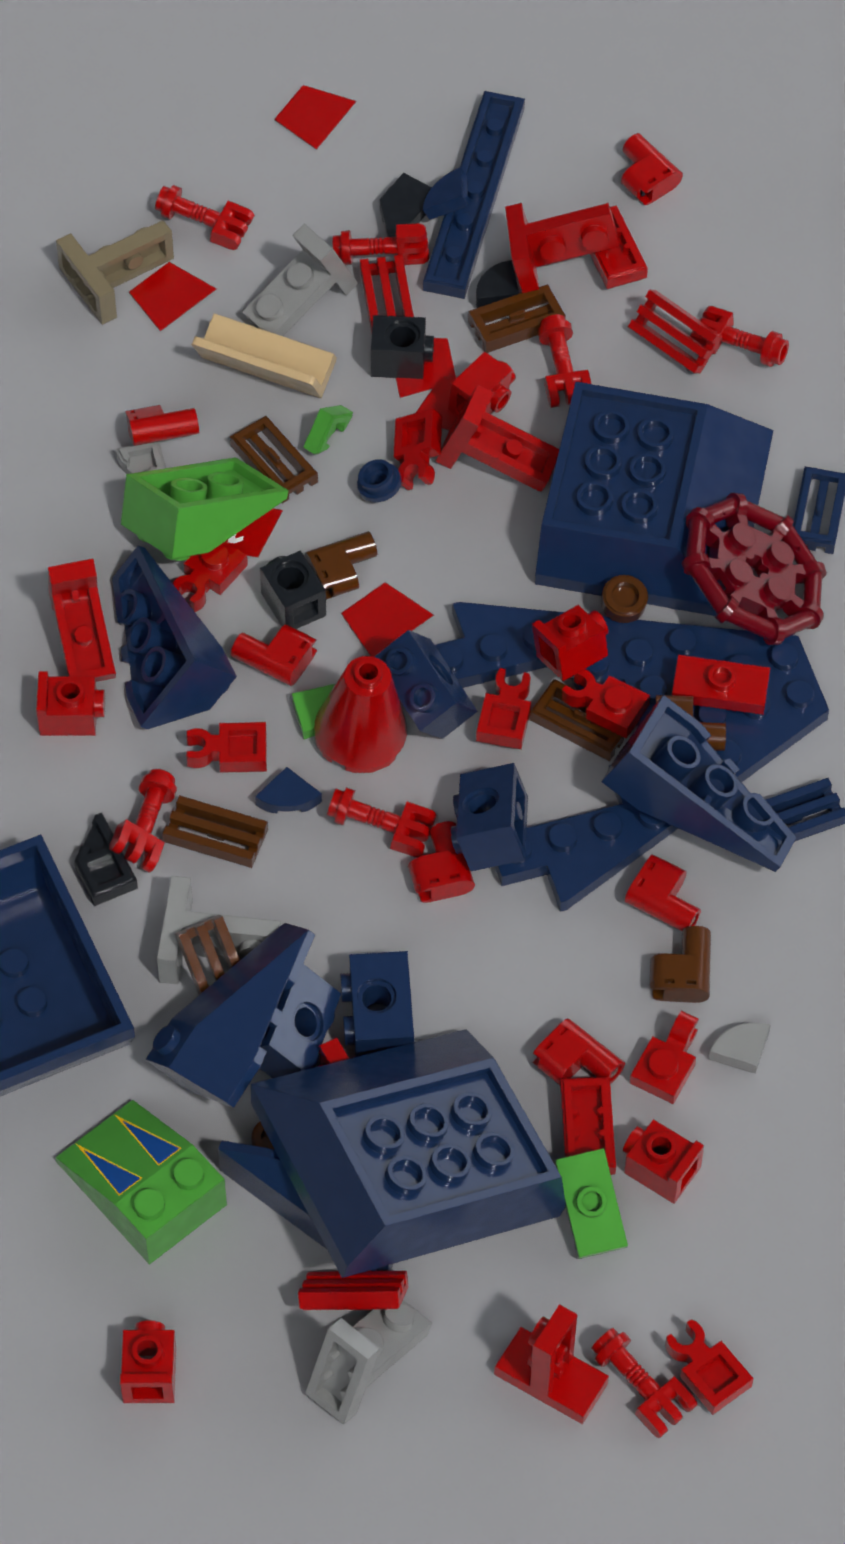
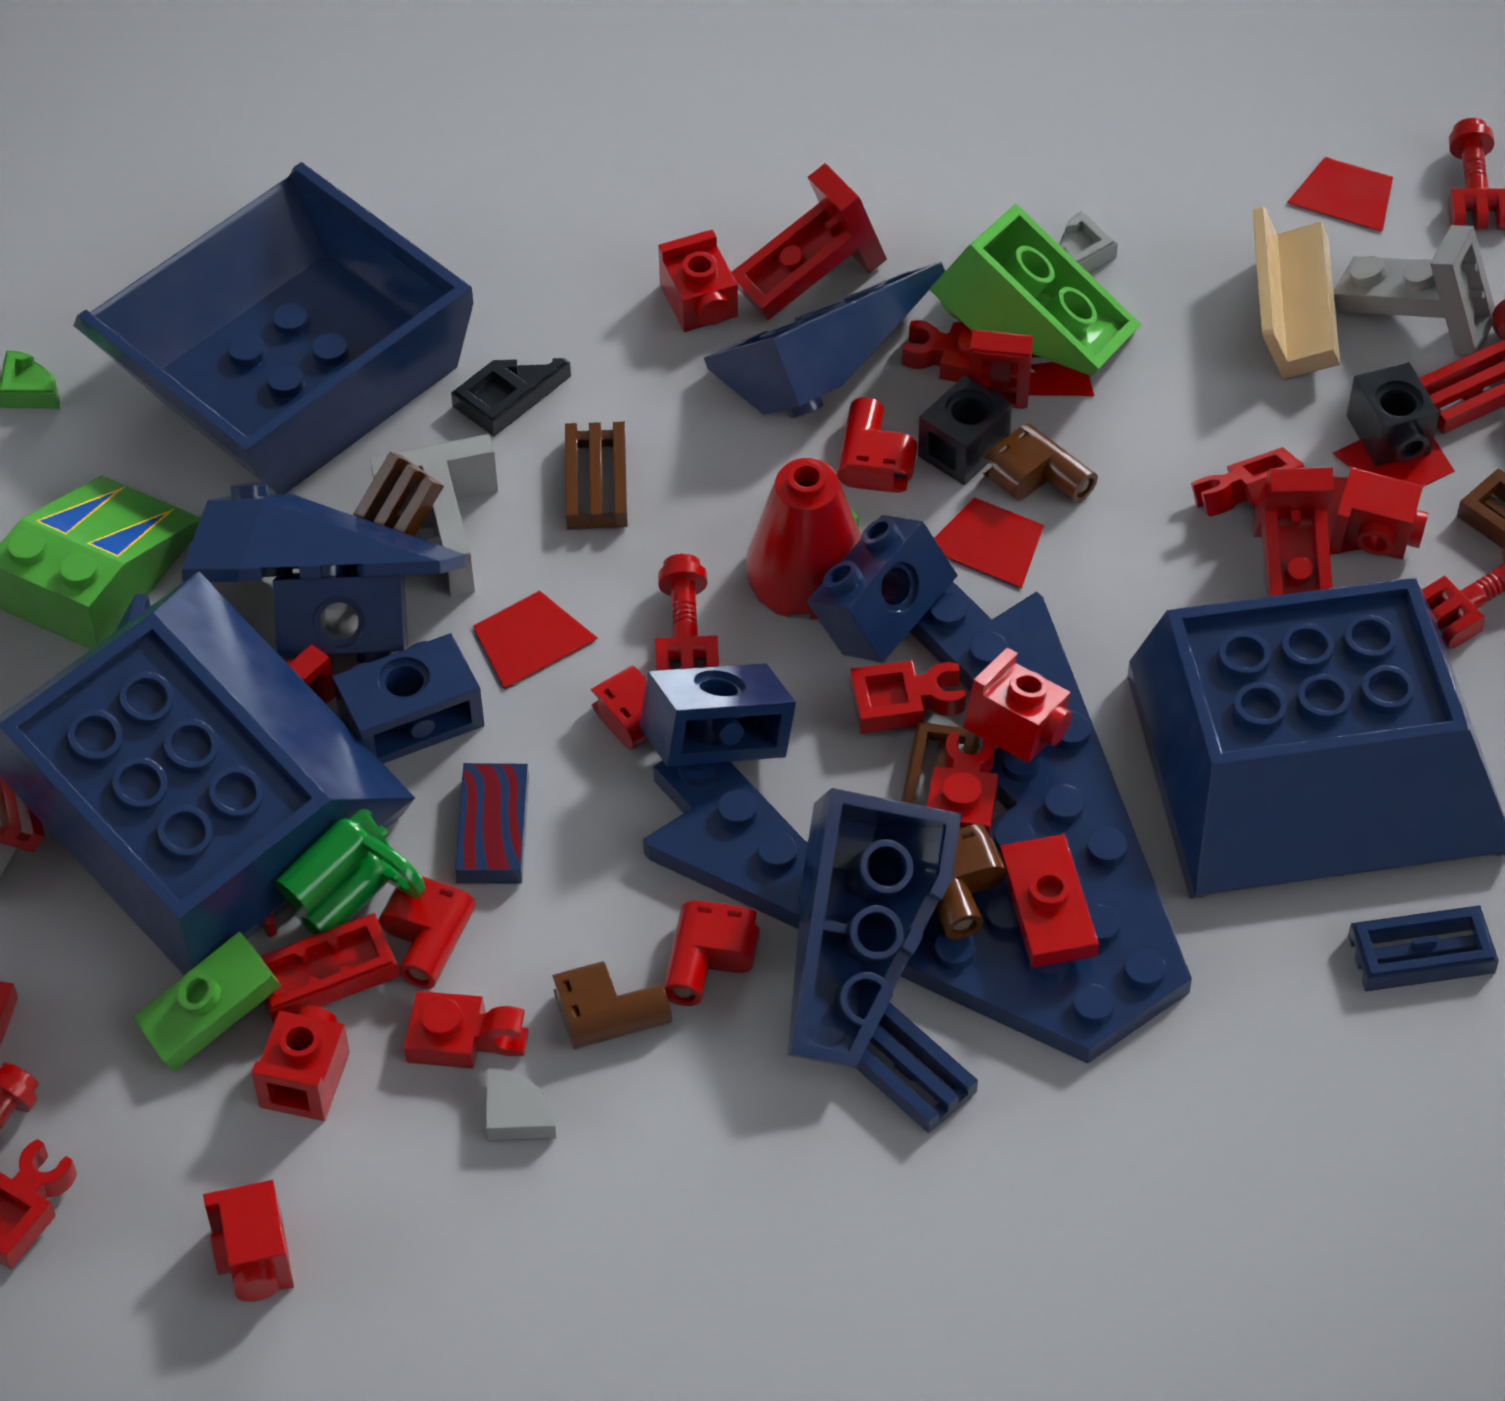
camera: 70 degrees right, 5 degrees down
(113, 265) = (1339, 119): dark tan bracket -> none
(153, 425) = (1133, 230): red piece -> none
(157, 788) = (625, 399): red hinge -> none
(237, 747) = (715, 452): red plate -> none
(264, 544) = (1002, 364): none -> red plate
(288, 793) = (681, 522): dark blue tile -> none
(292, 483) = (1141, 389): reddish brown tile -> none
(325, 425) = (1231, 385): bright green tile -> none
(341, 921) = (530, 637): none -> red sticker
(378, 481) = (1180, 461): dark blue plate -> none
(502, 991) = (492, 823): none -> tile
(526, 1082) = (345, 873): none -> green piece
(624, 599) = (1133, 758): reddish brown tile -> none
(747, 598) = (1288, 872): dark red plate -> none
(796, 1226) = (249, 1239): none -> red brick

